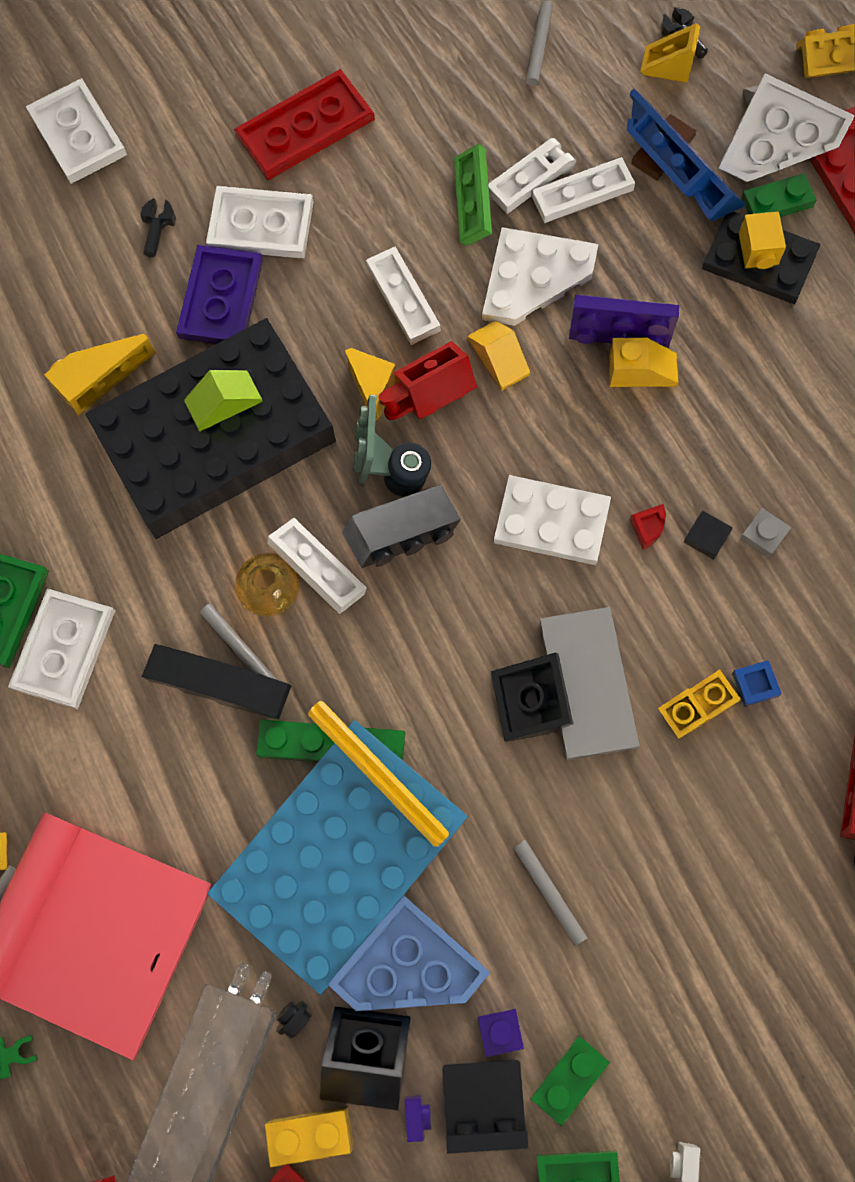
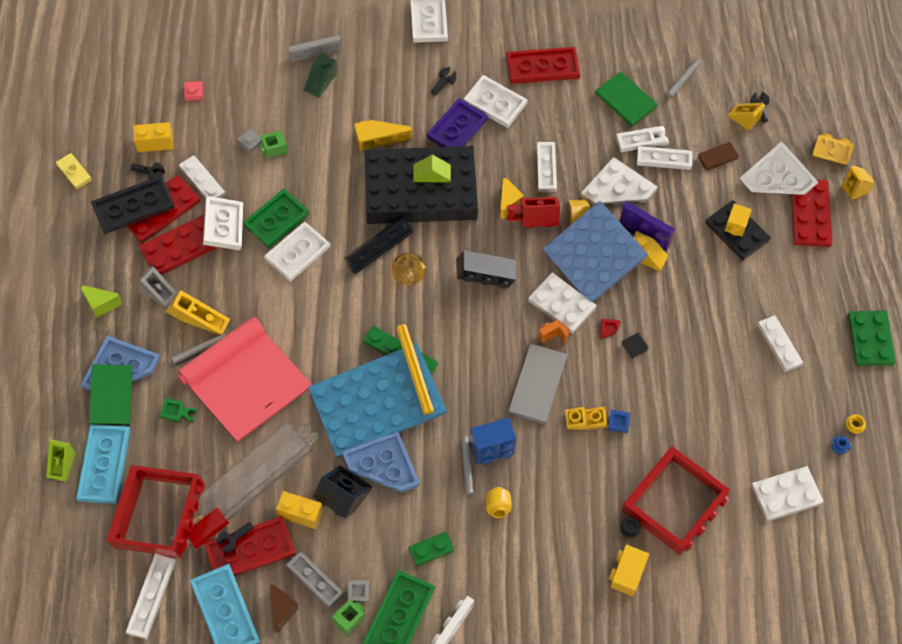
camera: 20 degrees right, 10 degrees down
(195, 570) = (378, 245): none -> black plate
(217, 681) = (362, 298): black slope -> none
(234, 641) = (380, 289): light grey bar -> none
(293, 1019) = (318, 459): black plate -> none
(316, 565) = (436, 269): white plate -> none
(402, 468) = (502, 242): plate -> none
(417, 1118) = (352, 527): dark purple plate -> none
(468, 118) = (626, 99): none -> green tile
(472, 195) = (607, 135): bright green tile -> none
(484, 1107) = (385, 538): black bracket -> none
(500, 1032) = (410, 513): dark purple plate -> none
(532, 698) = (506, 376): black slope -> none
(558, 581) = (552, 330): none -> orange bracket
(564, 405) = (595, 252): none -> medium blue plate
(576, 832) = (492, 441): none -> blue brick
(639, 936) = (498, 502): none -> yellow head
(680, 160) = (720, 165): blue wedge -> none
(765, 533) = (664, 358): light grey plate -> none
(785, 196) = (764, 206): green plate -> none

